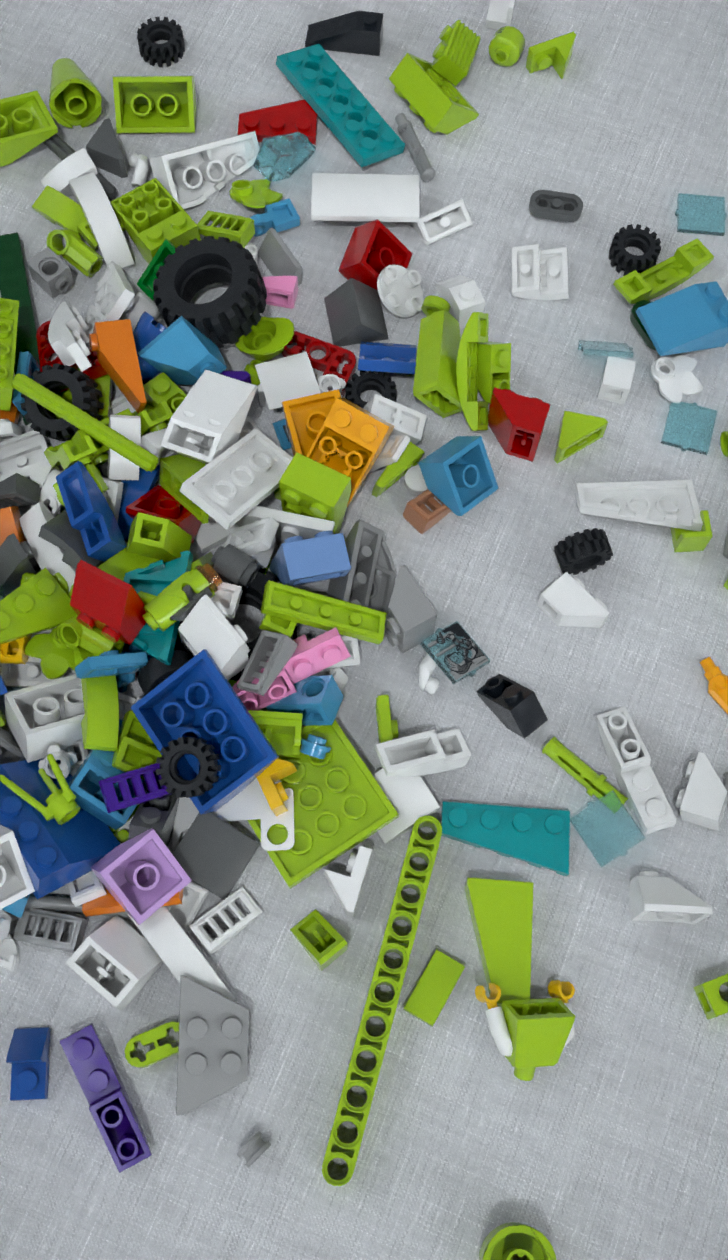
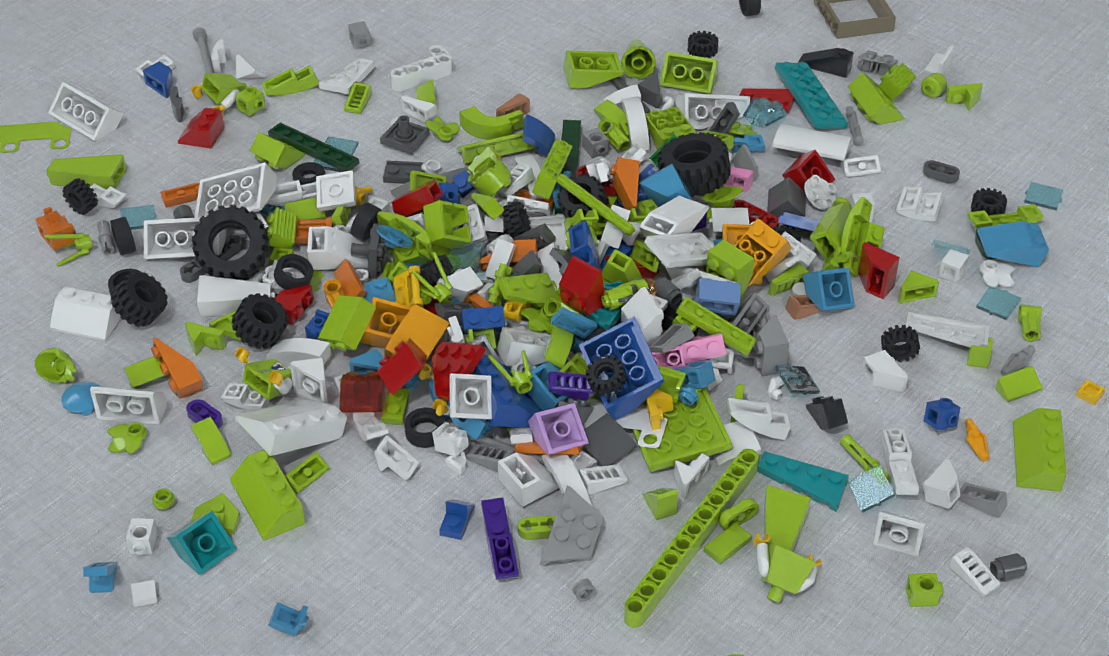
camera: 20 degrees right, 25 degrees down
(232, 188) = (726, 119): none -> dark grey slope
(406, 12) = (871, 56): none -> light grey hinge
(427, 945) = (739, 513): none -> lime plate
(450, 420) = (834, 259): none -> lime plate
(672, 660) = (942, 414): none -> blue brick

